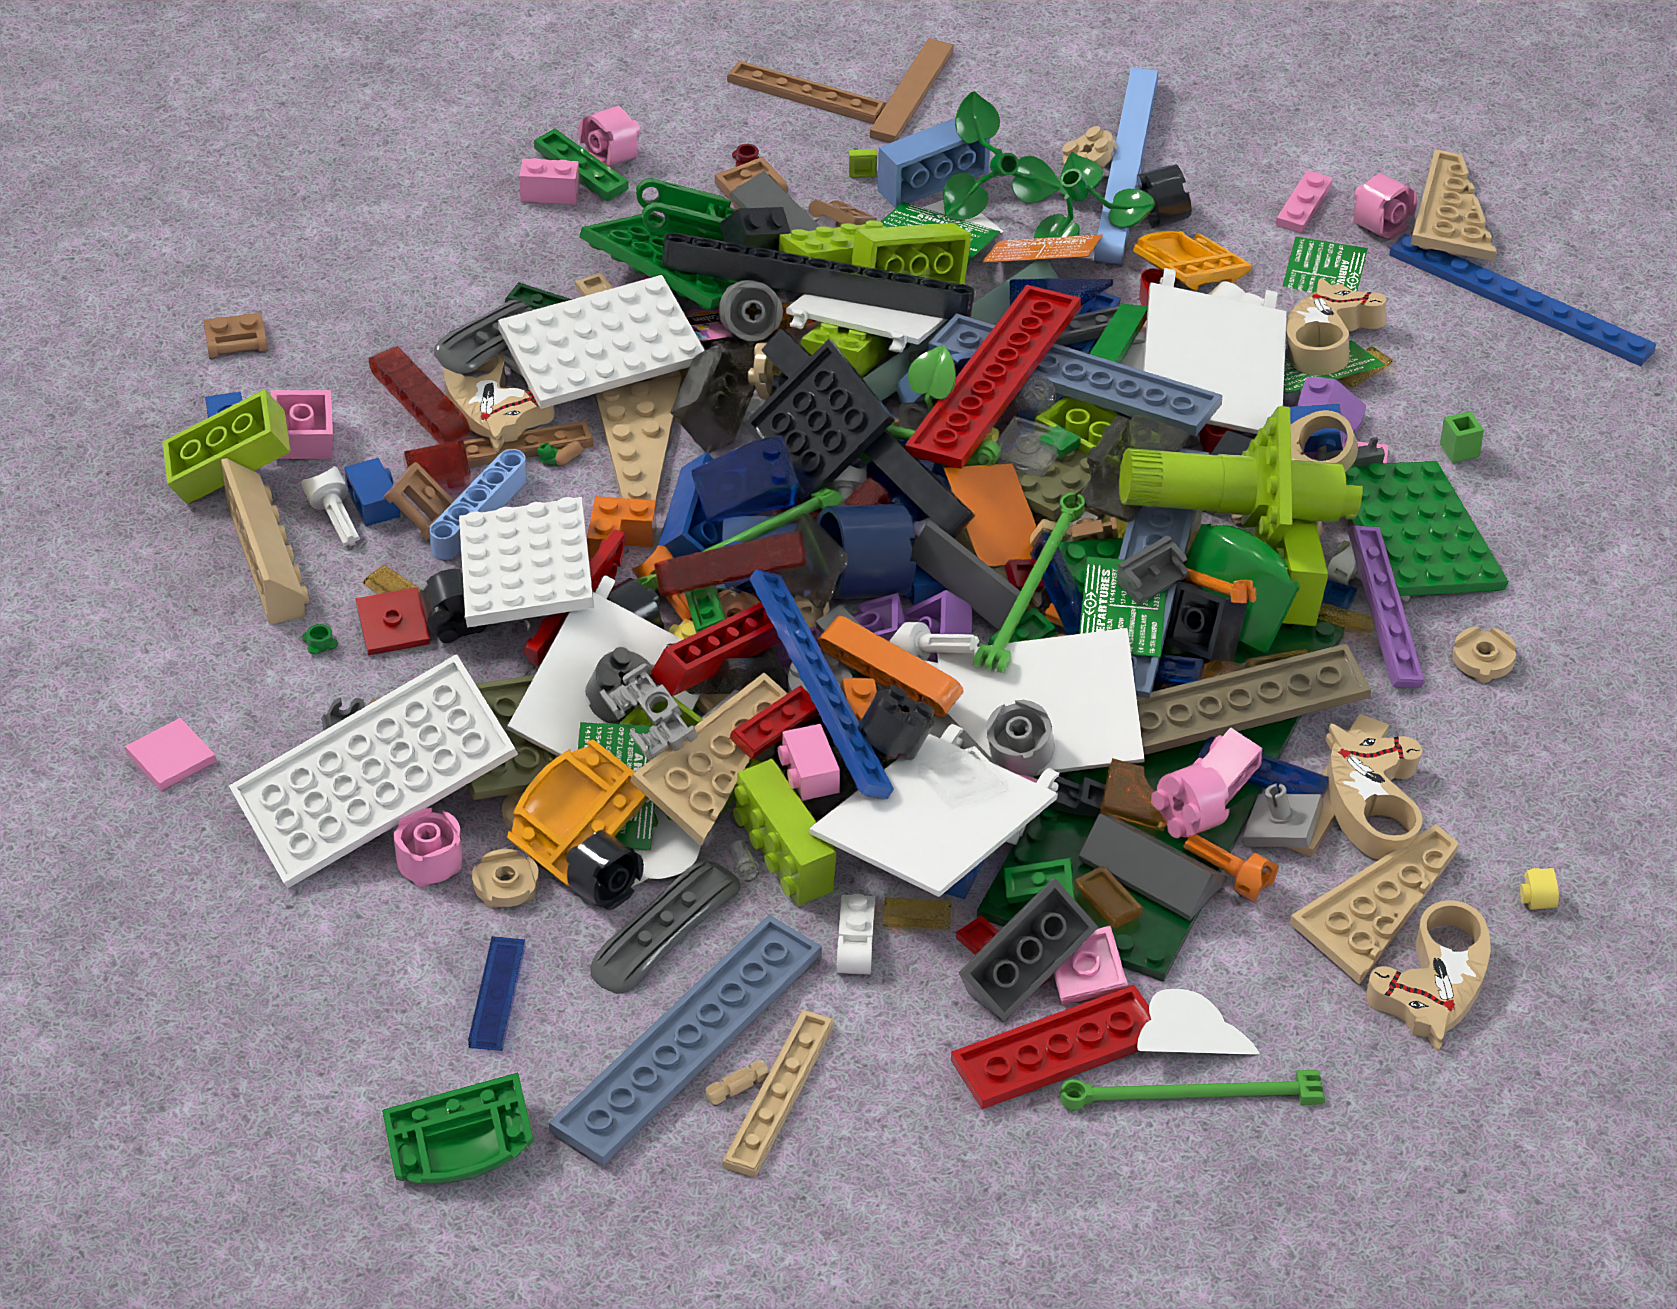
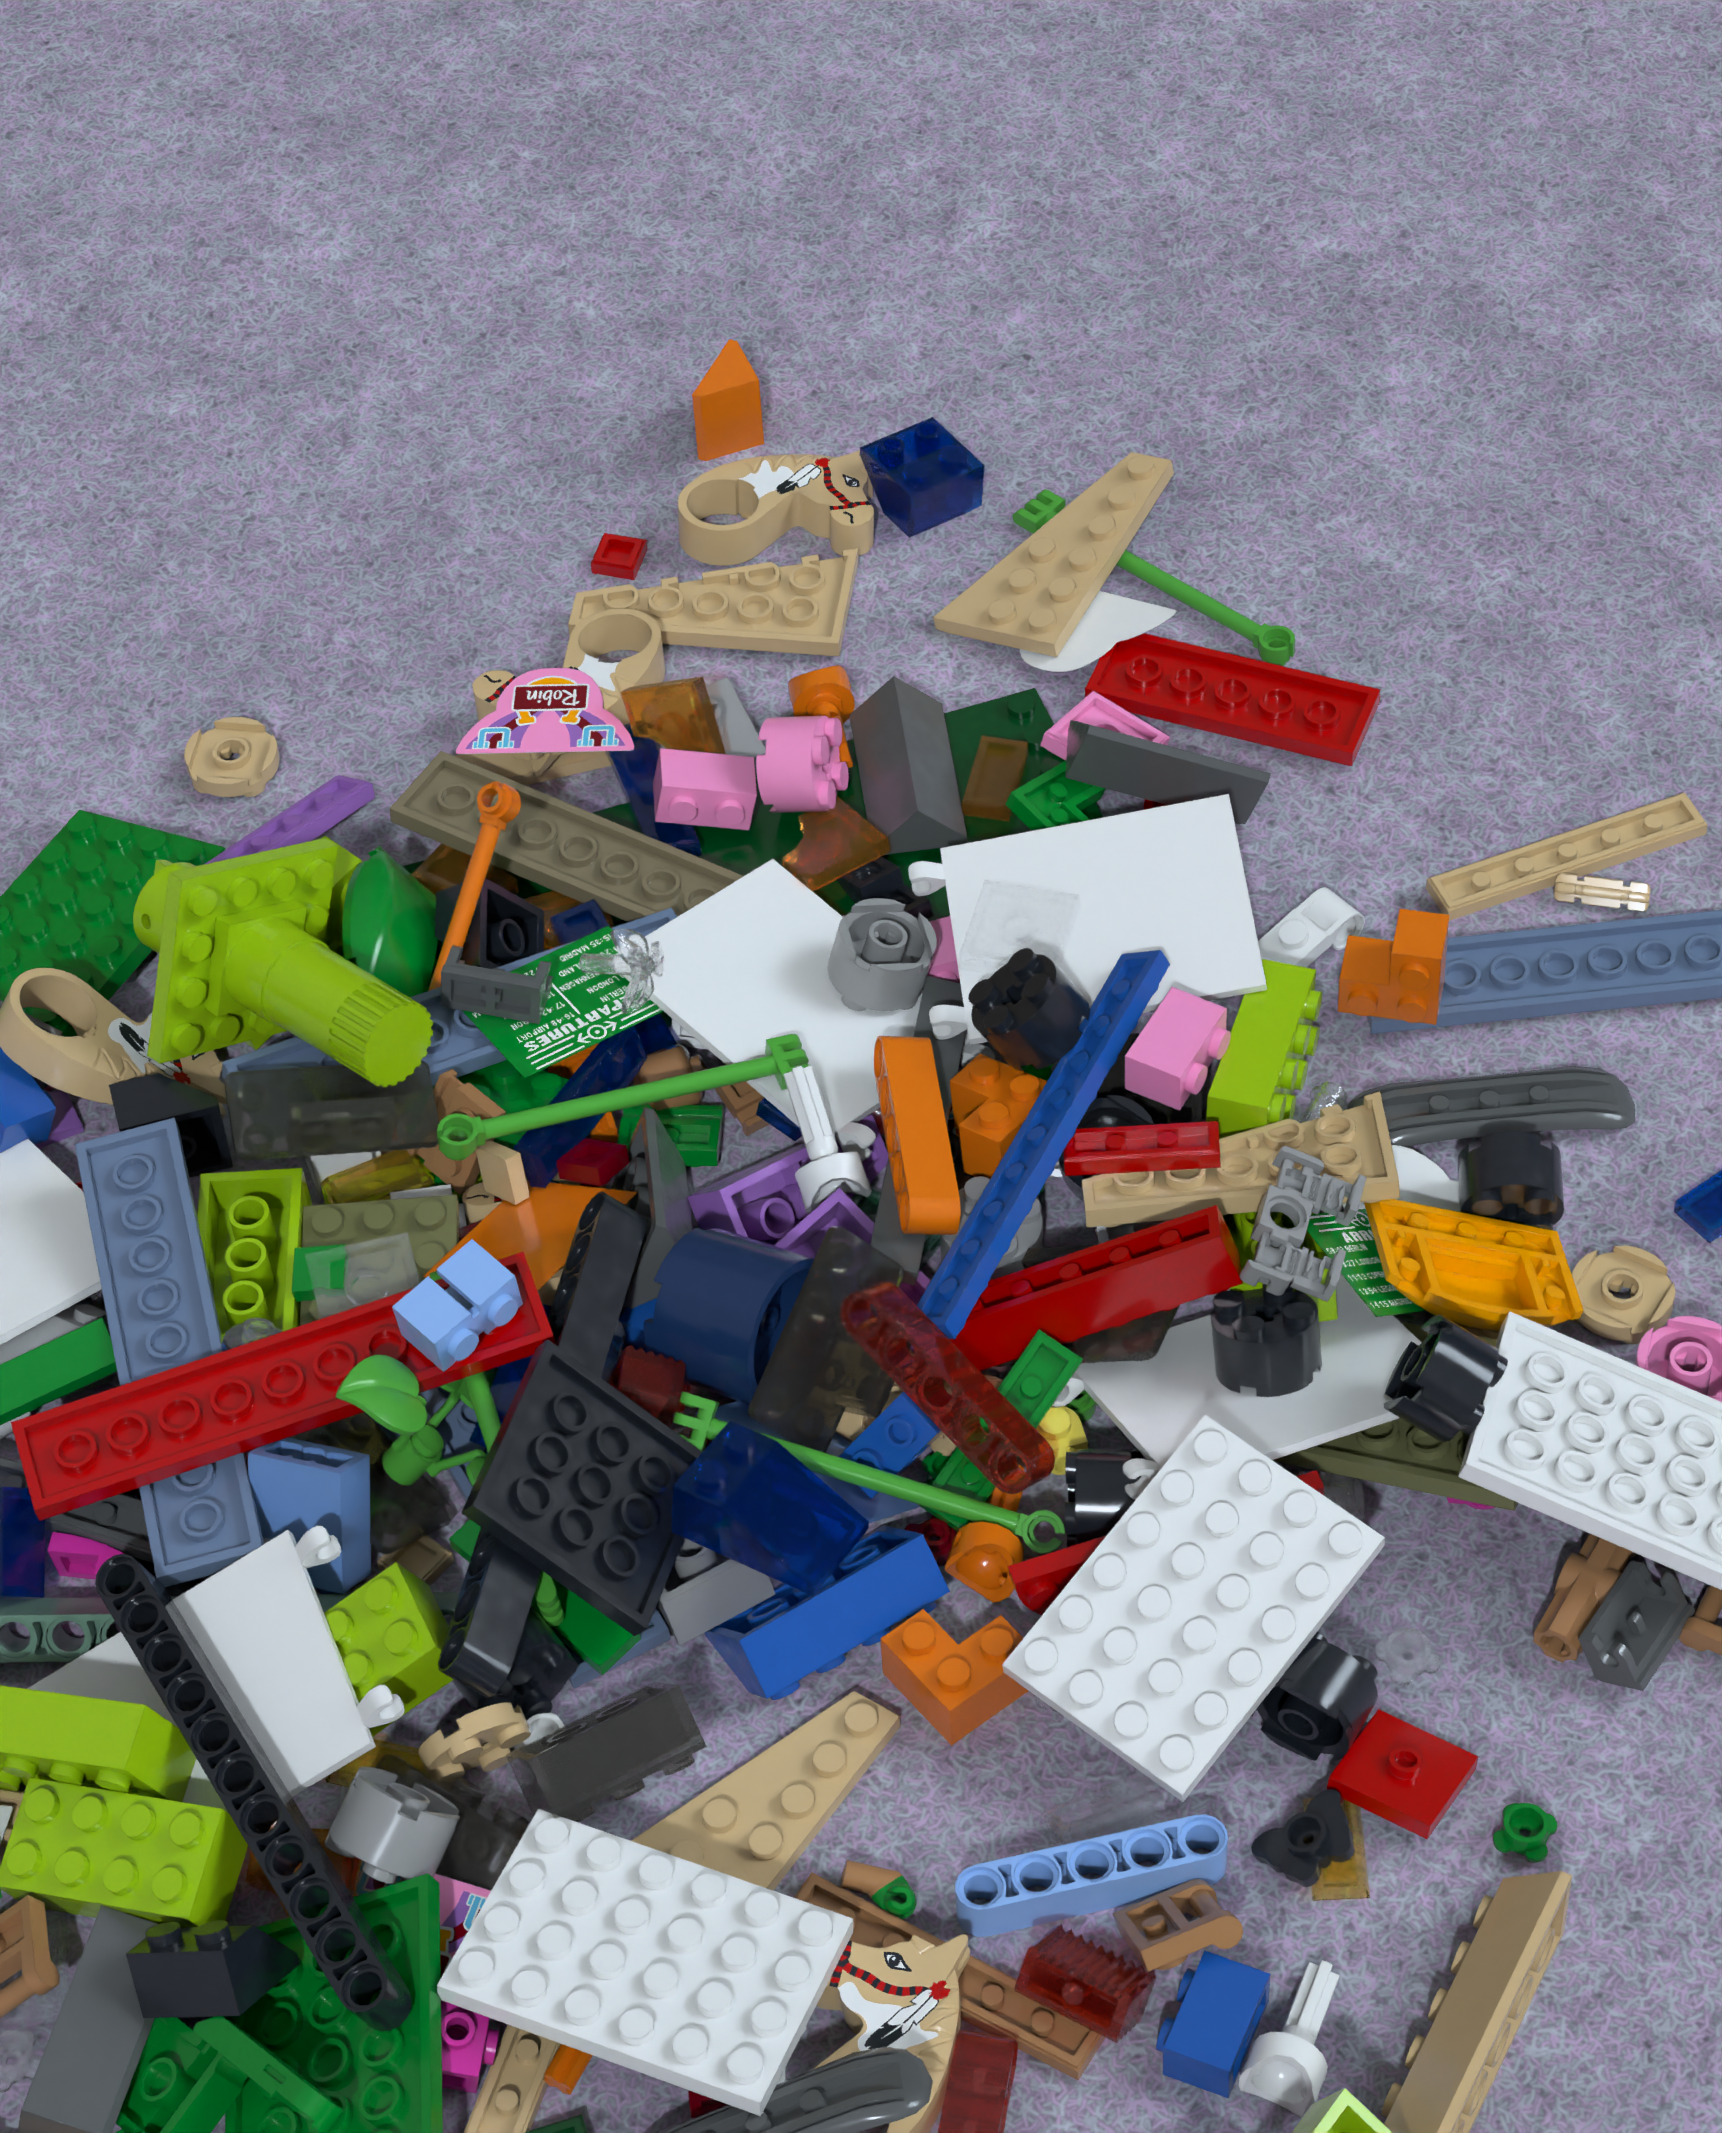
camera: 130 degrees left, 5 degrees up
(402, 570) = (1308, 1840): none -> black animal
(506, 686) = (1444, 1380): none -> black brick
(770, 918) = (1398, 976): none -> orange brick
(949, 414) = (448, 1321): none -> light blue piece
(1103, 620) = (633, 960): none -> clear plant
(1243, 1042) = (1054, 575): none -> tan wing
(1285, 772) = (674, 715): none -> clear orange tile
(1351, 745) = (548, 714): none -> sticker
(1387, 1036) = (923, 476): none -> clear blue slope
(1480, 893) = (619, 556): none -> red tile
(1540, 889) = (570, 506): light yellow plate -> none
(1546, 994) = (728, 406): none -> orange slope

